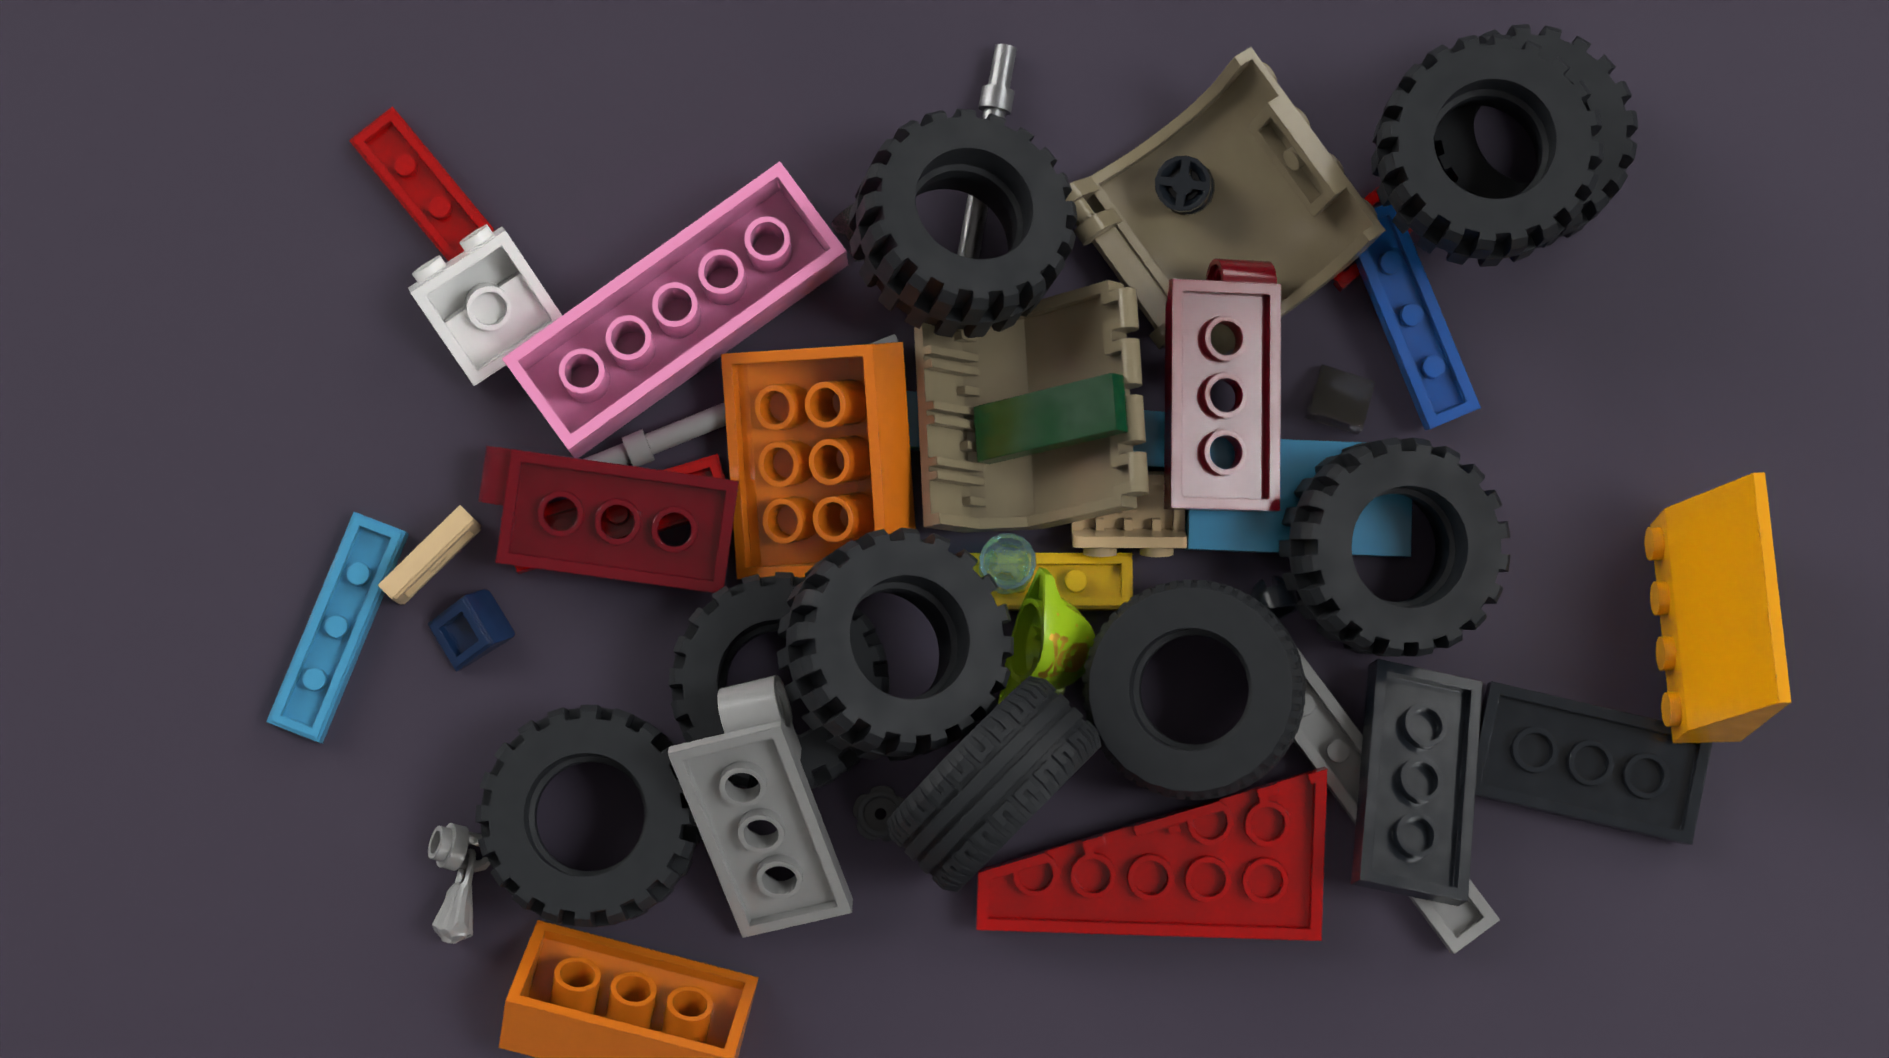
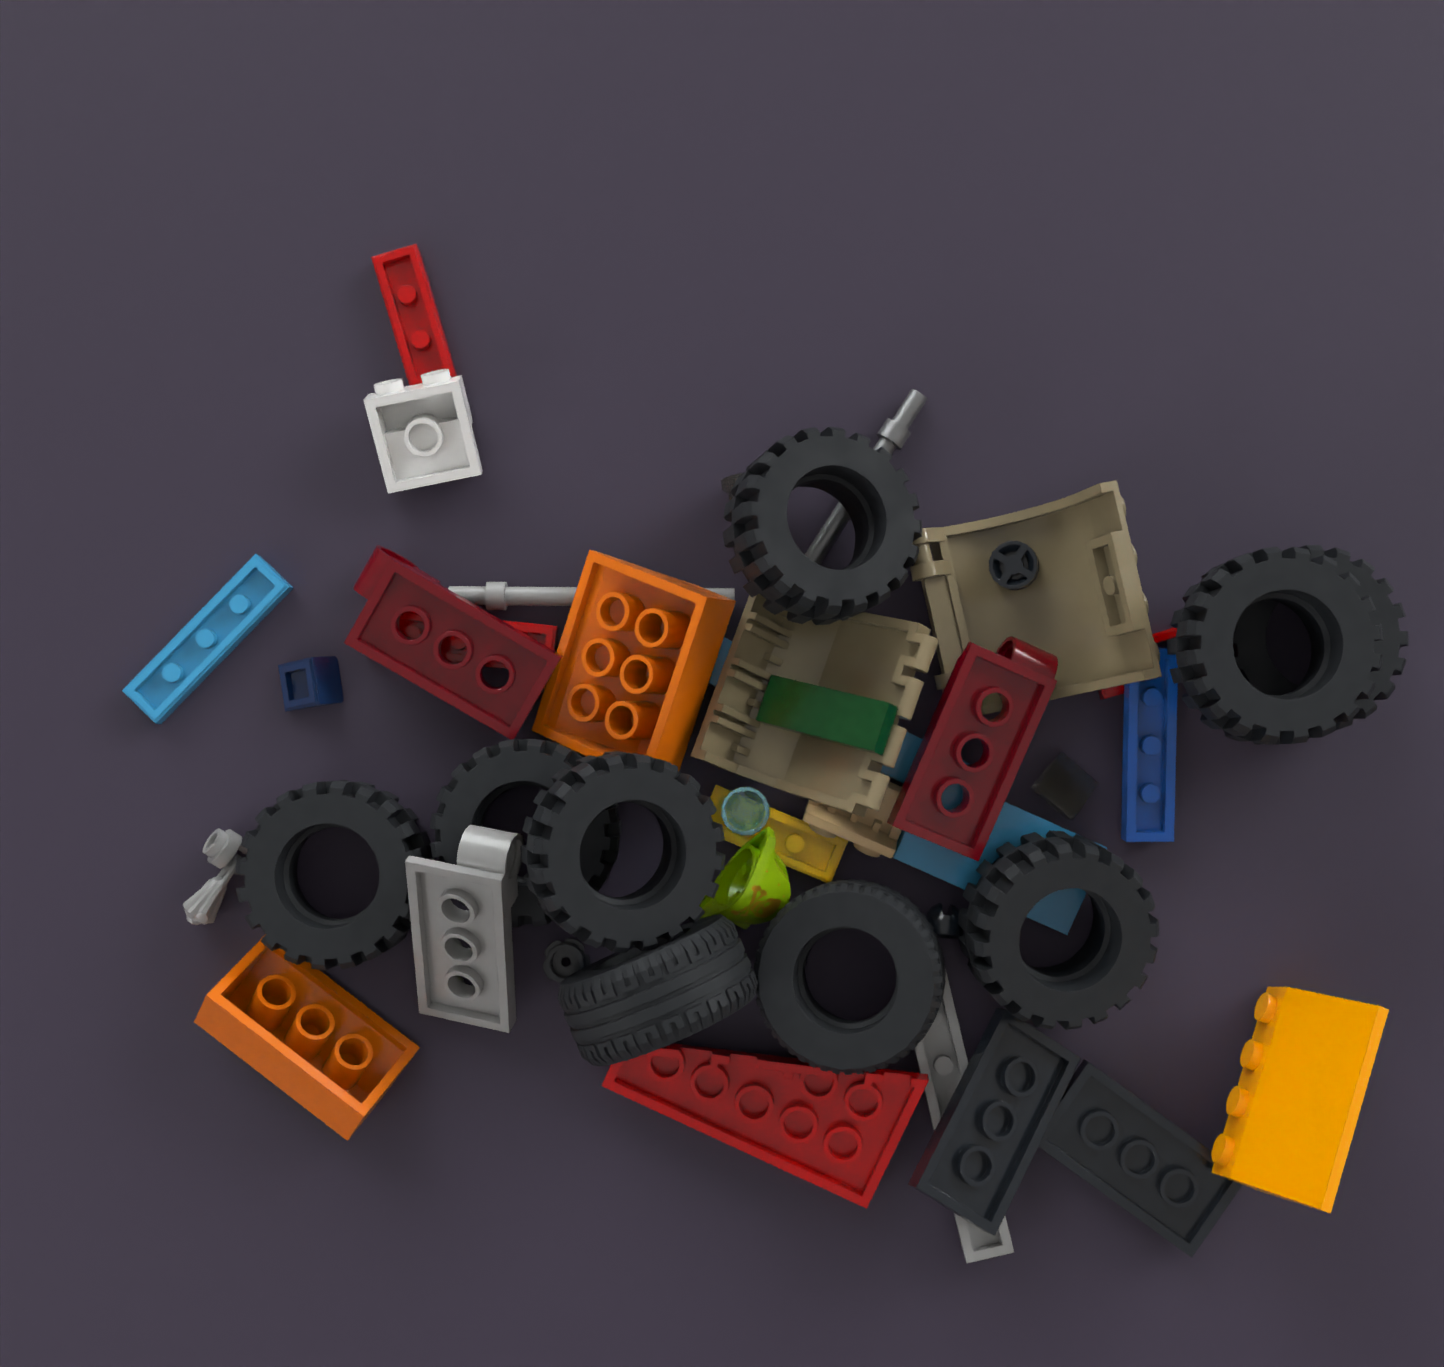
camera: 30 degrees right, 5 degrees up
(430, 556) = (299, 614): tan tile -> none
(677, 310) = (567, 500): bright pink brick -> none

